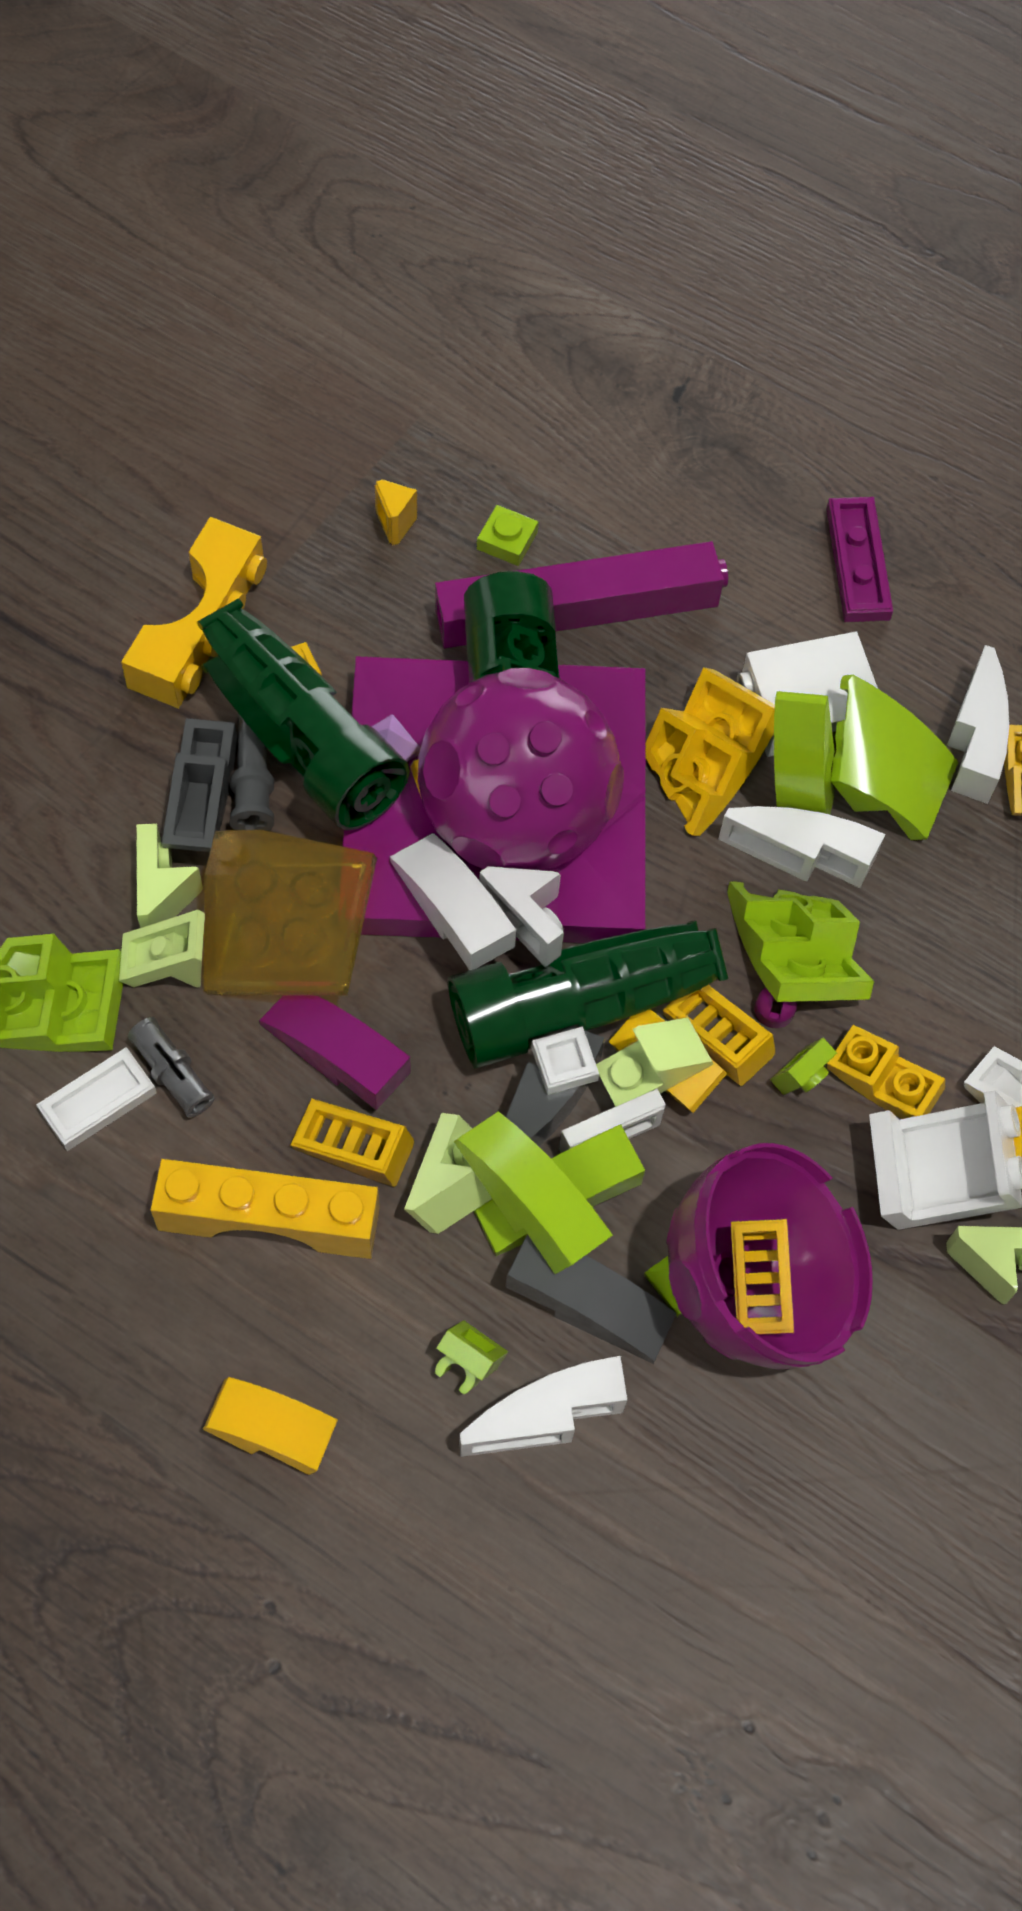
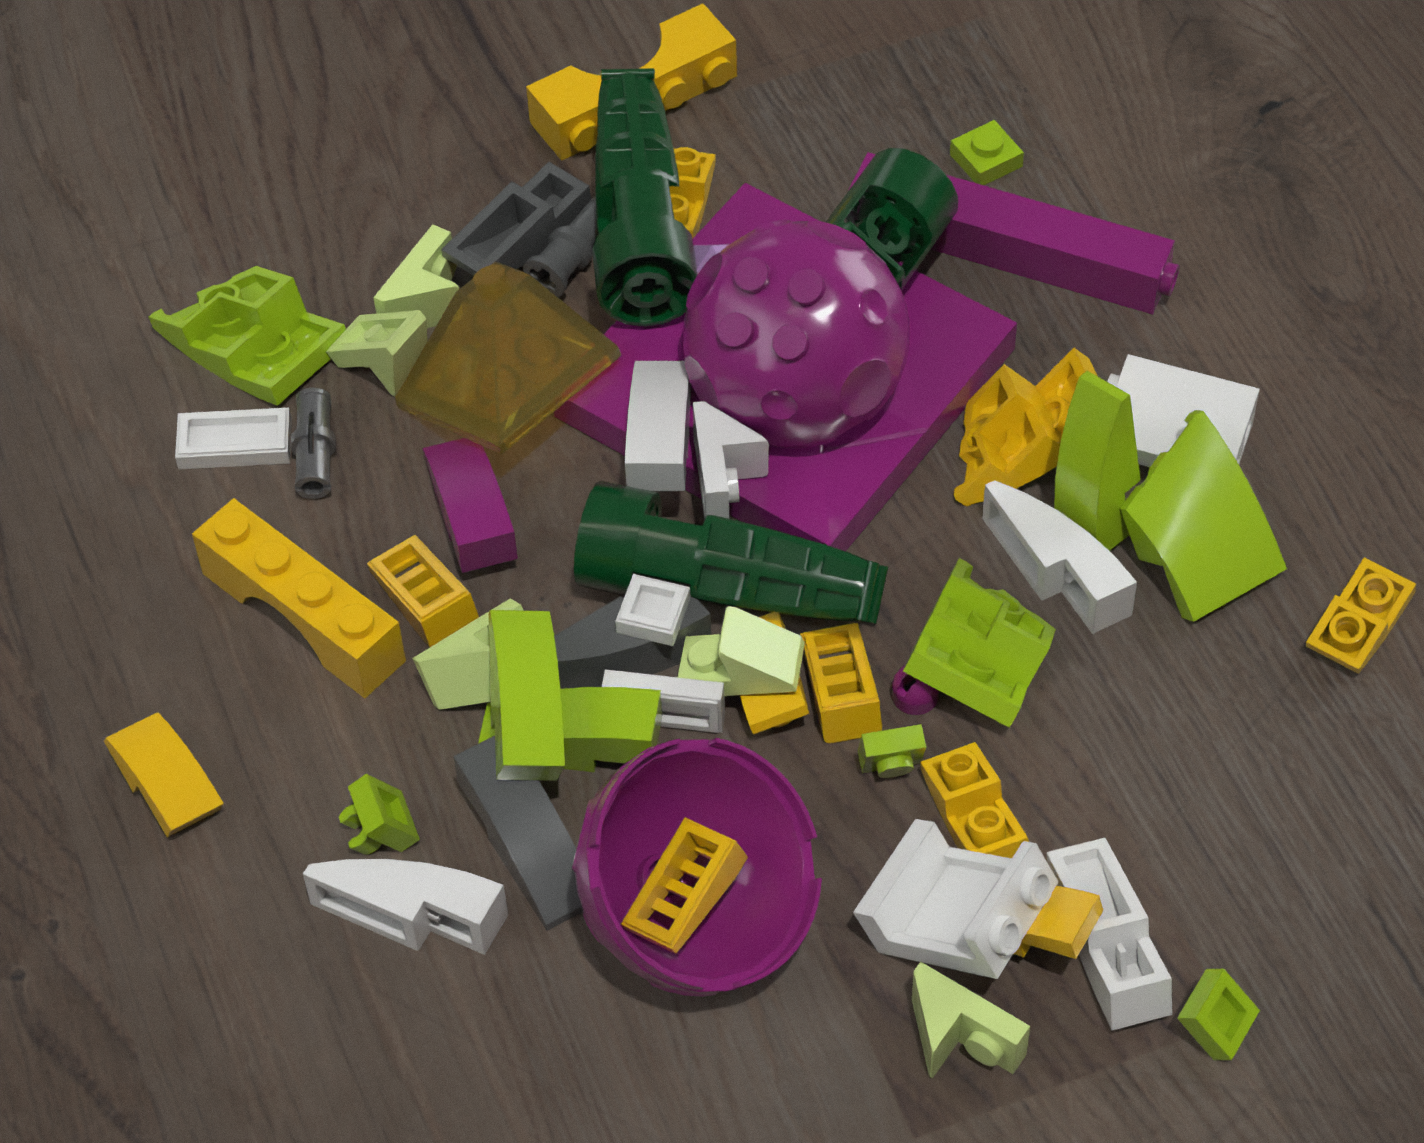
camera: 40 degrees right, 10 degrees down
(395, 508) = (890, 80): yellow slope -> none
(859, 559) = (1335, 338): magenta tile -> none
(982, 730) = (1328, 548): white slope -> none

